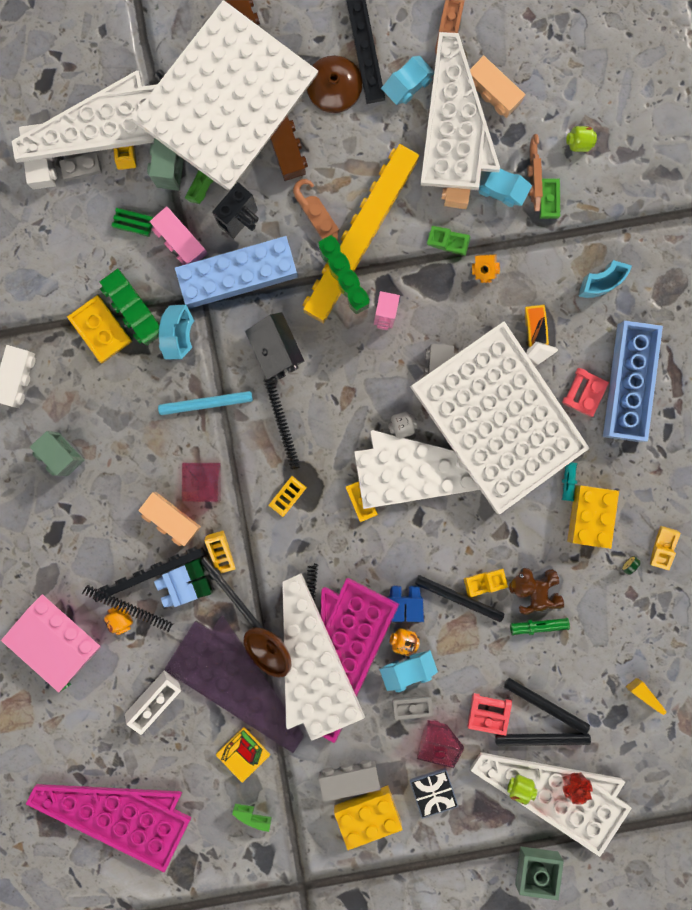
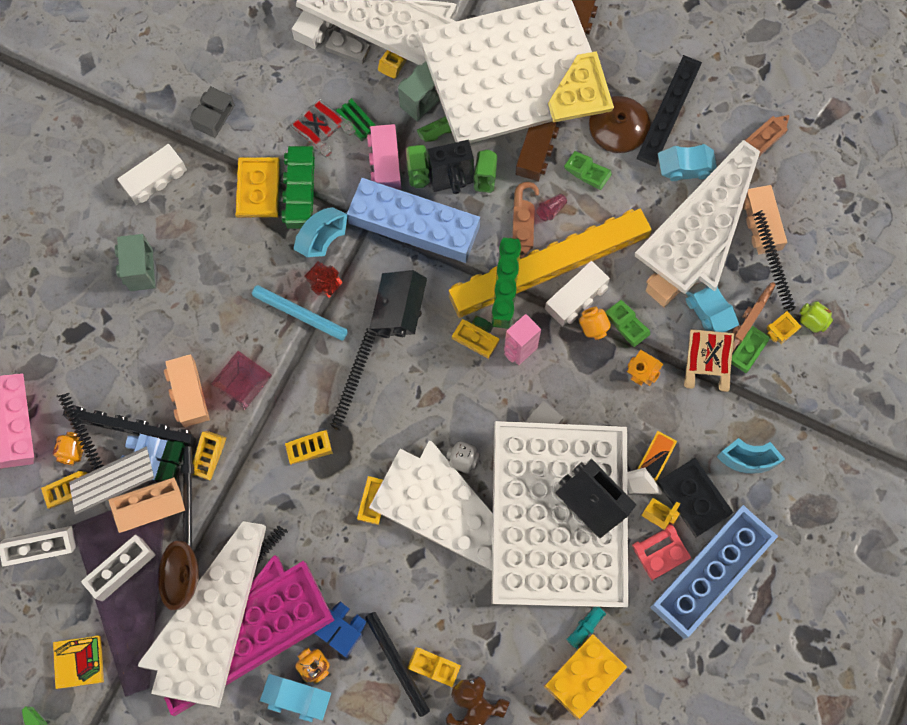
camera: 45 degrees right, 15 degrees down
(18, 294) = (213, 111): none -> dark grey piece
(108, 244) = (319, 124): none -> clear flag
(145, 637) = (64, 482): none -> yellow slope
(169, 623) = (111, 480): none -> sticker
(205, 366) = (323, 279): none -> clear red brick
(207, 621) = (146, 505): none -> light nougat brick
(209, 228) = (417, 166): none -> bright green brick
(223, 678) = (118, 568): none -> white brick
(263, 195) = (485, 171): none -> bright green brick
(291, 77) = (581, 90): none -> light yellow plate
(330, 191) = (550, 208): none -> clear pink cone
(336, 140) = (587, 171): none -> bright green slope
(345, 317) = (483, 324): none -> dark green tile
(348, 331) = (475, 338): none -> yellow plate
(398, 244) = (577, 294): none -> white brick
(426, 257) = (594, 323): none -> light orange head
(522, 391) = (595, 498): none -> black piece
(526, 223) = (710, 355): none -> flag
(549, 141) = (776, 260): none -> black piece
(563, 164) = (783, 328): none -> yellow bracket
(568, 366) = (661, 514): none -> yellow bracket
(583, 336) = (698, 497): none -> black plate

